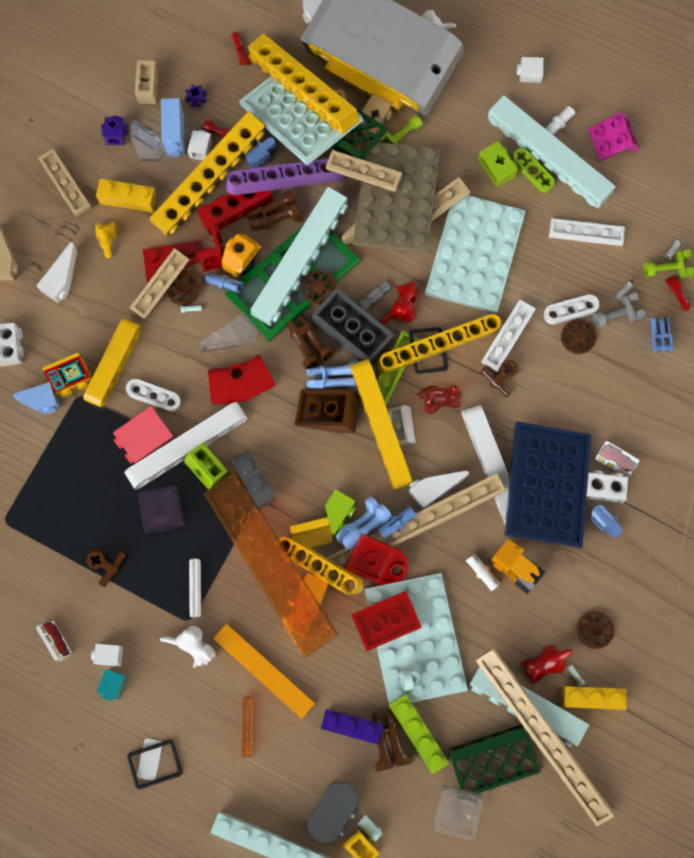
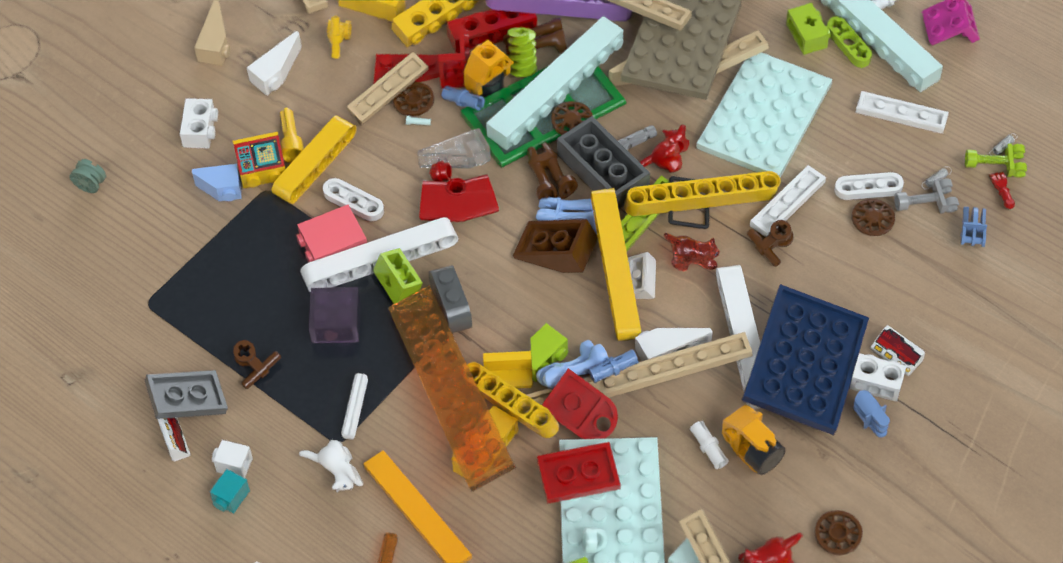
camera: 10 degrees right, 20 degrees down
(56, 606) = (185, 394): none -> plate
(91, 353) = (291, 143): none -> yellow piece
(220, 356) = (441, 171): none -> red plate
(266, 231) = (522, 51): none -> lime piece

